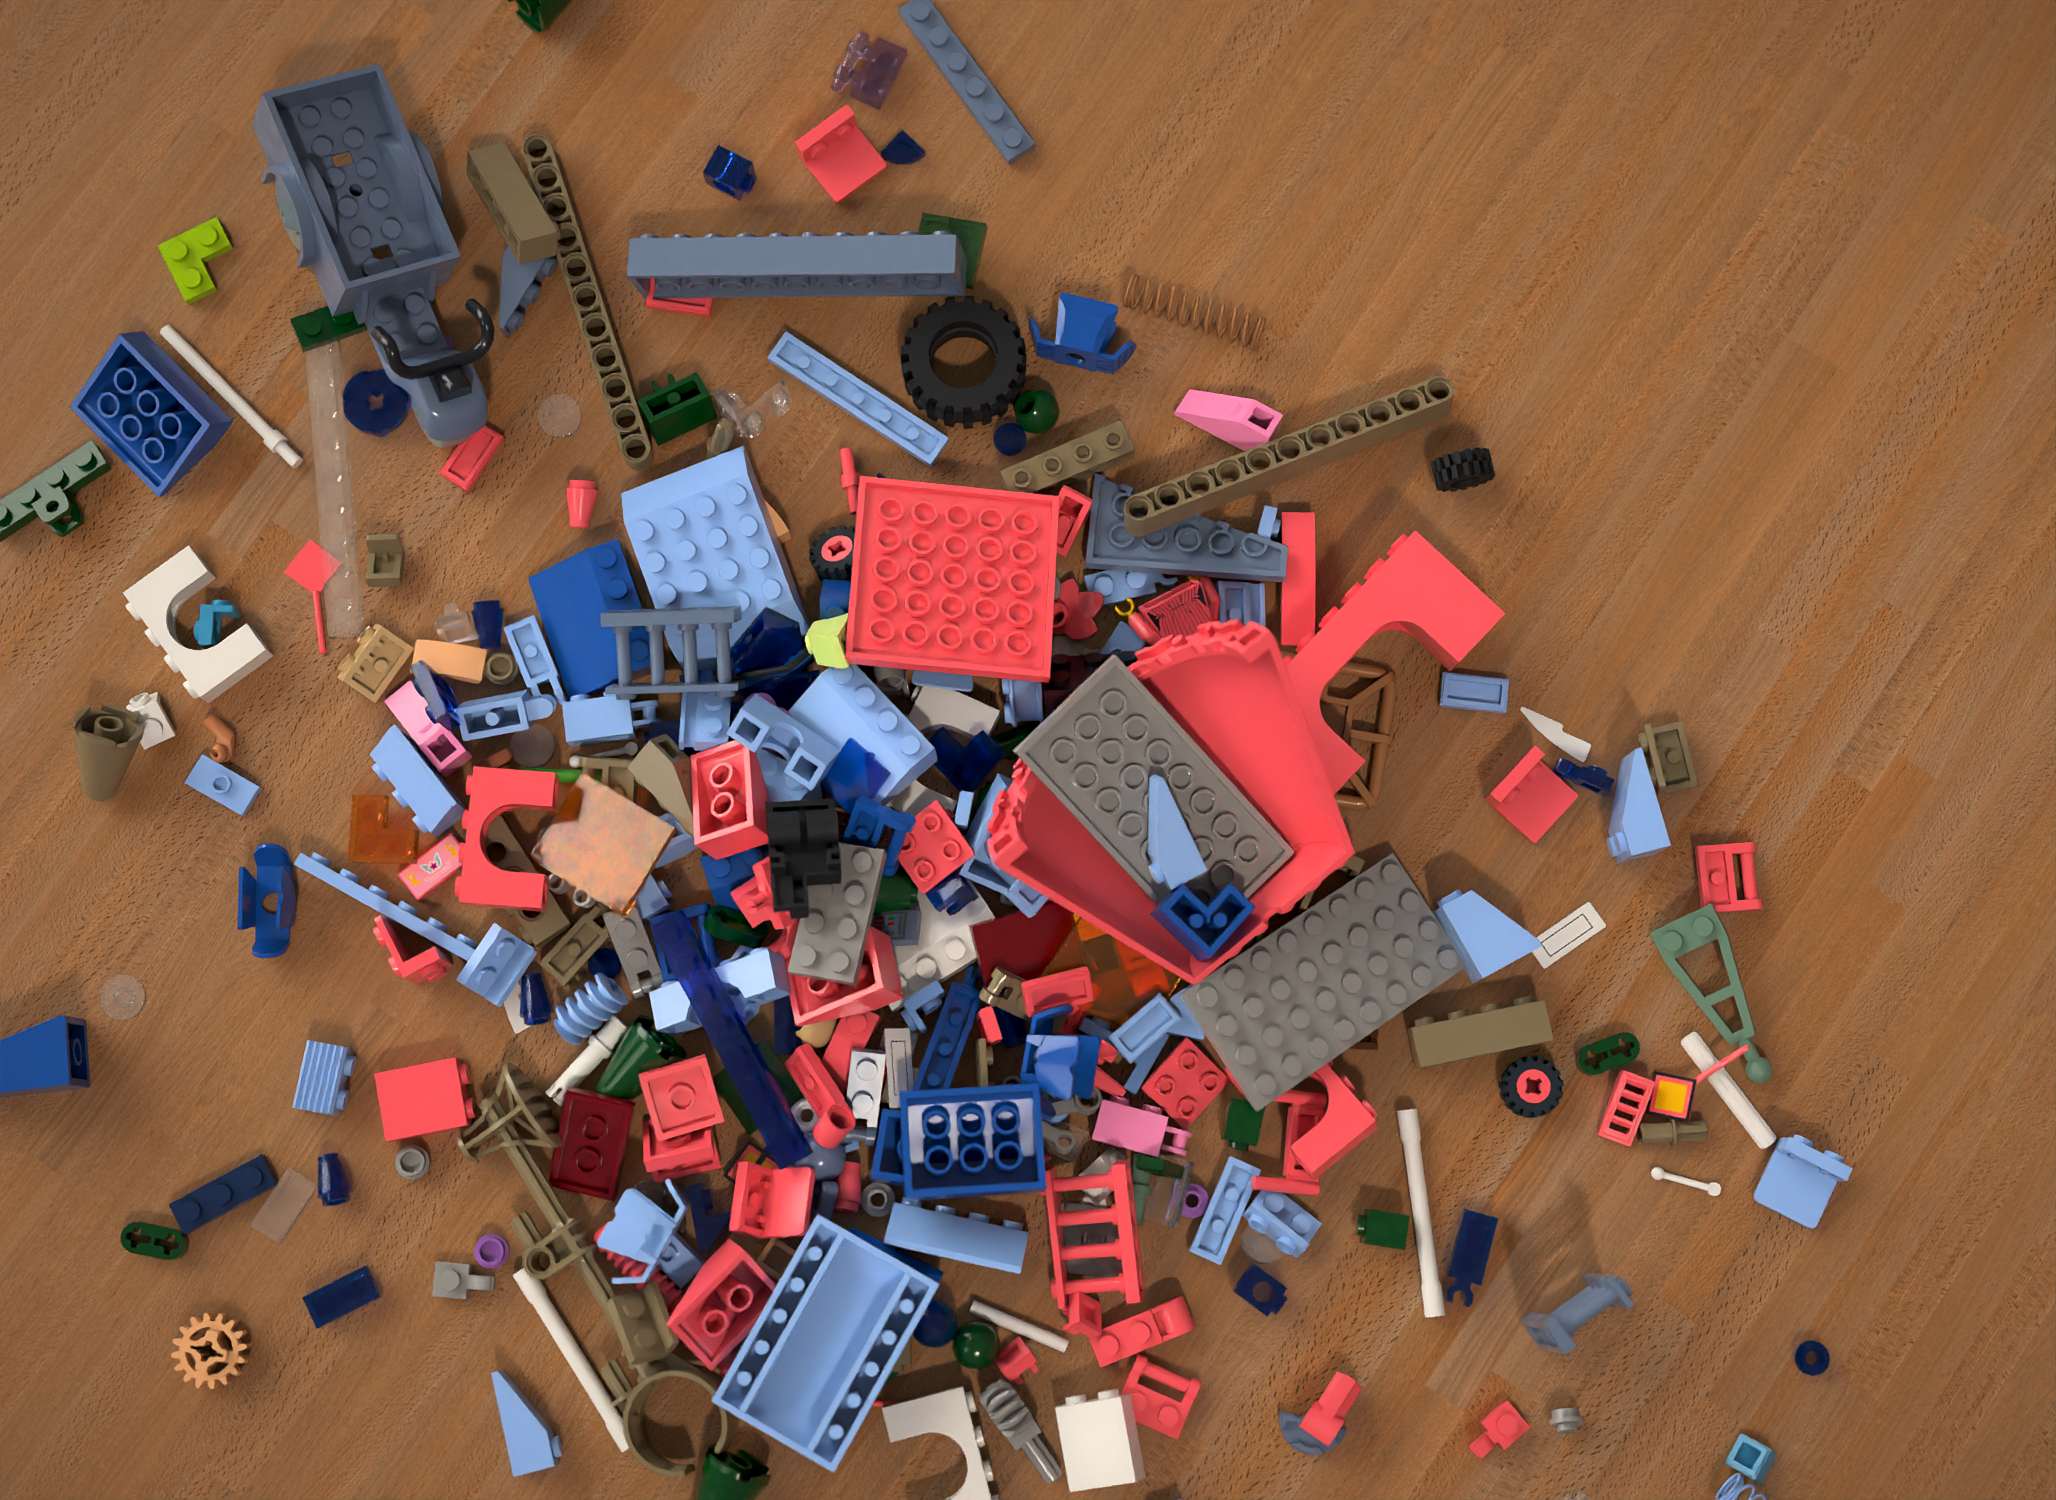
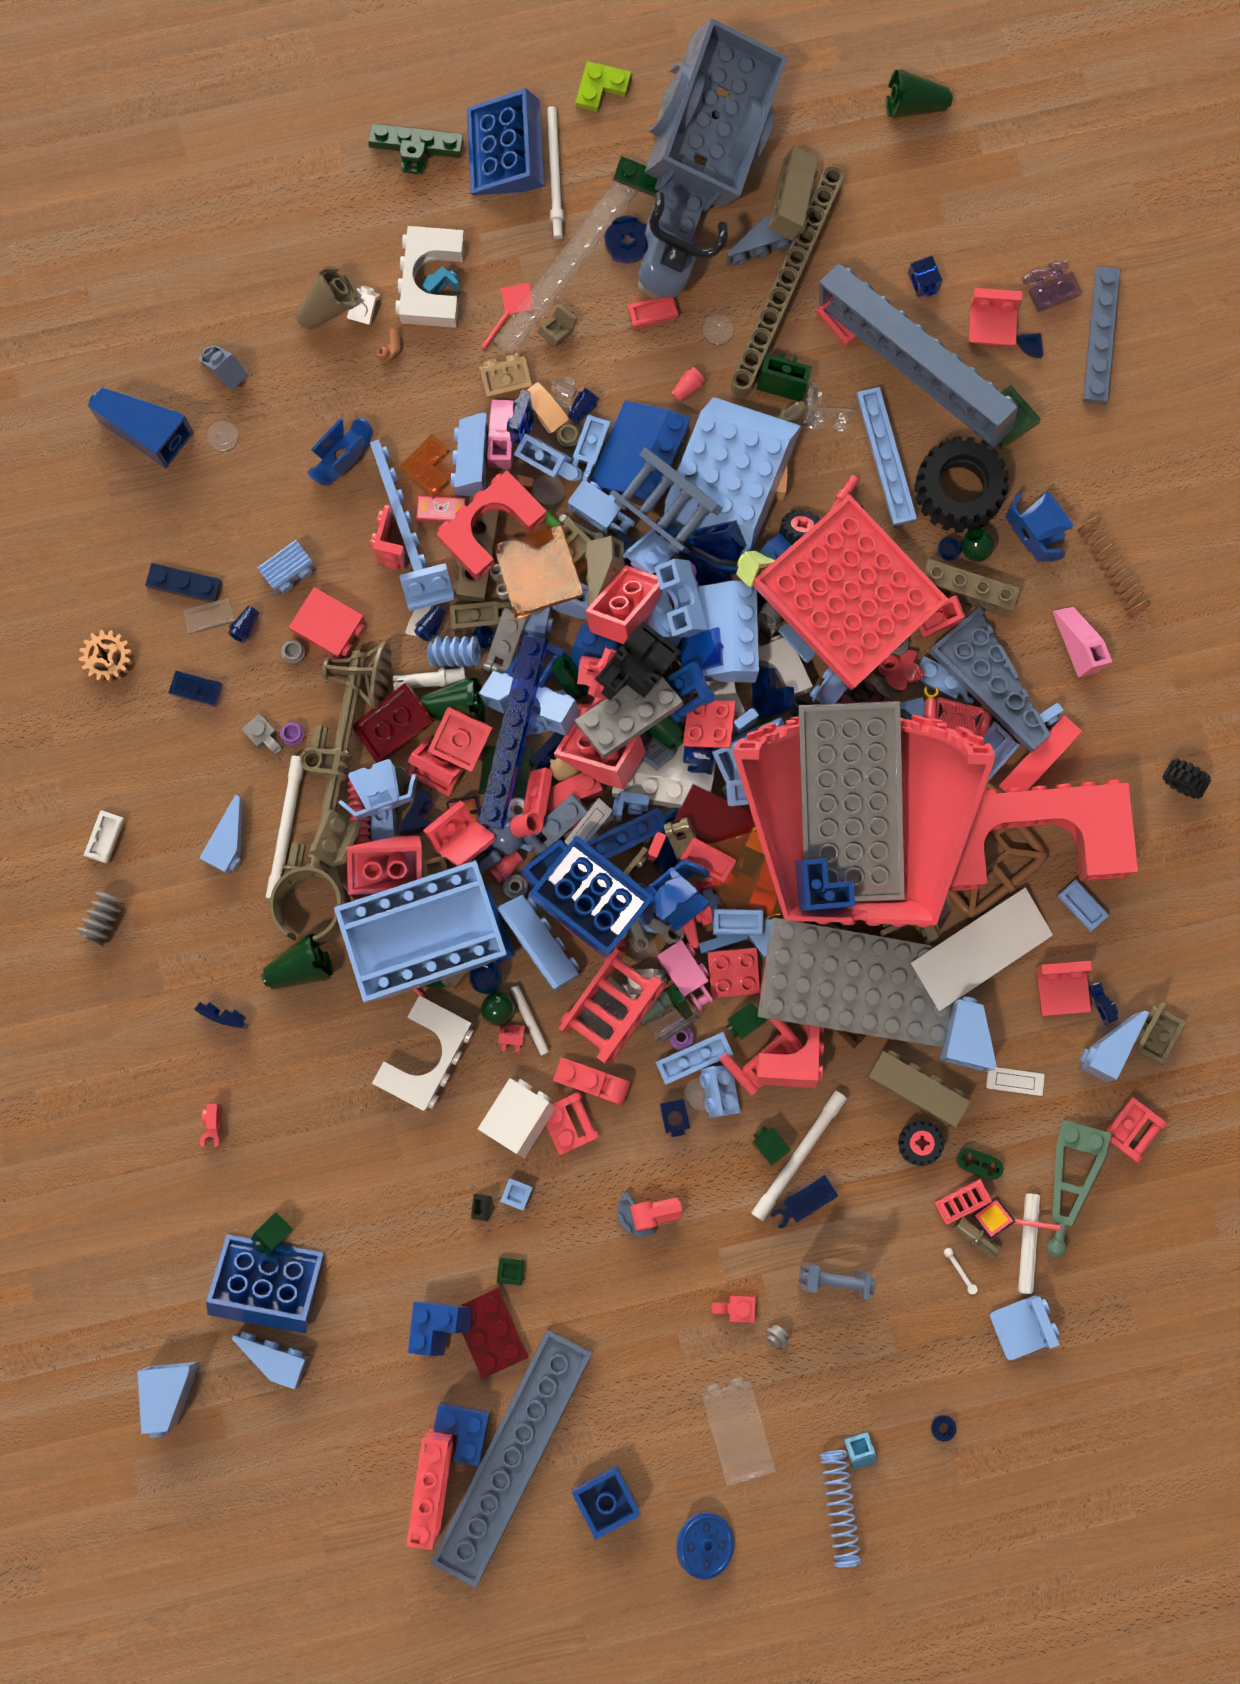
camera: 45 degrees right, 0 degrees up
(54, 921) = (223, 366): none -> sand blue slope
(153, 1249) = (123, 578): dark green beam -> none
(223, 785) = (370, 372): light blue plate -> none
(1019, 1427) = (481, 1072): light grey gear -> none
(1083, 1315) = (568, 1044): coral tile -> none
(1169, 840) = (840, 830): light blue slope -> none
(1280, 468) = (1107, 687): dark tan beam -> none
(1414, 830) = (981, 949): none -> white sticker
(1553, 732) = (1108, 966): white sticker -> none

